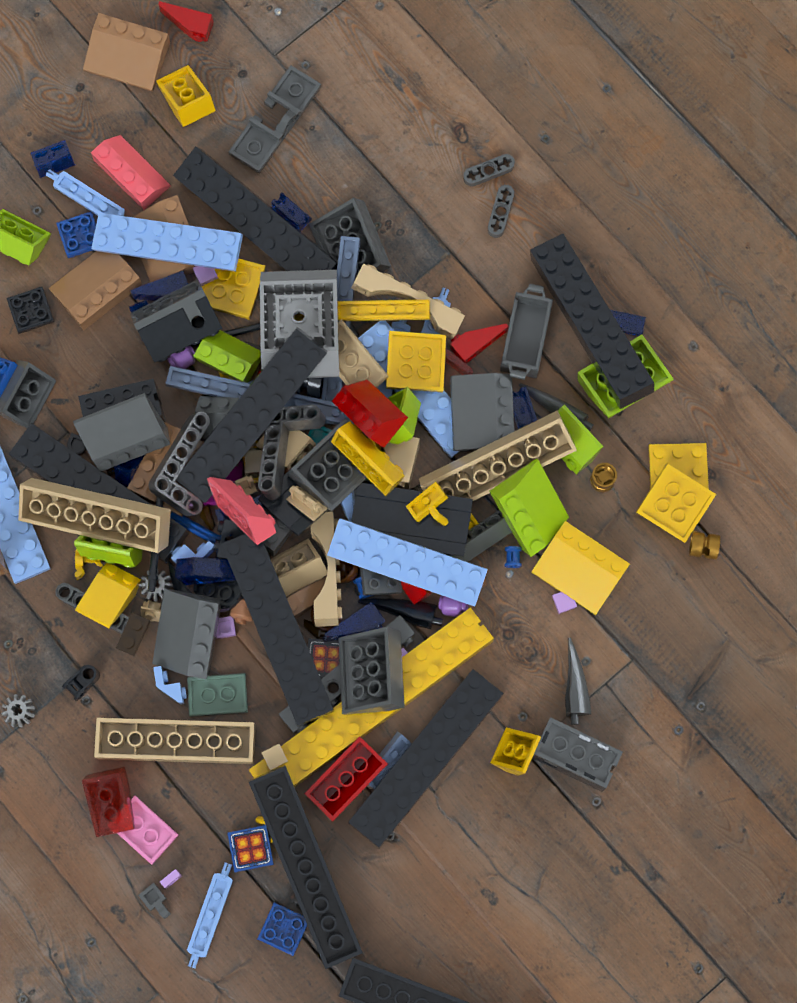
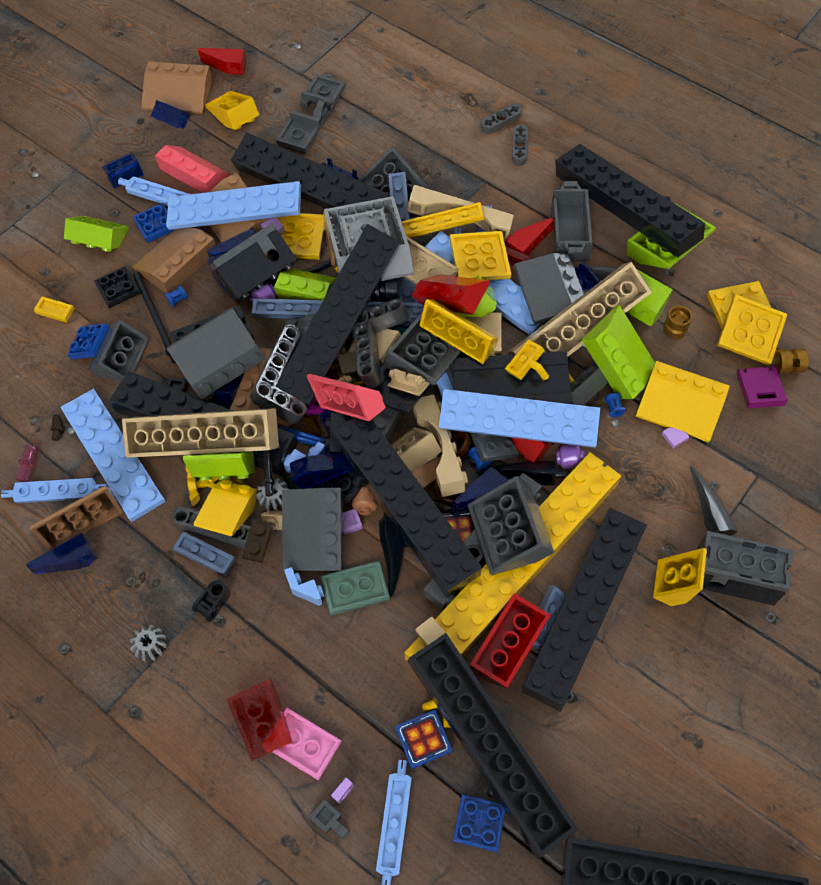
camera: 10 degrees left, 15 degrees down
(65, 354) = (154, 314): none -> black bar
(81, 633) = (204, 553): none -> sand blue plate
(90, 336) = (182, 295): none -> blue bush
(114, 90) = (170, 114): none -> clear blue hinge
(175, 740) = (319, 640): tan brick -> none
(259, 668) = (393, 547): none -> black piece
(667, 562) = (761, 382): none -> magenta container

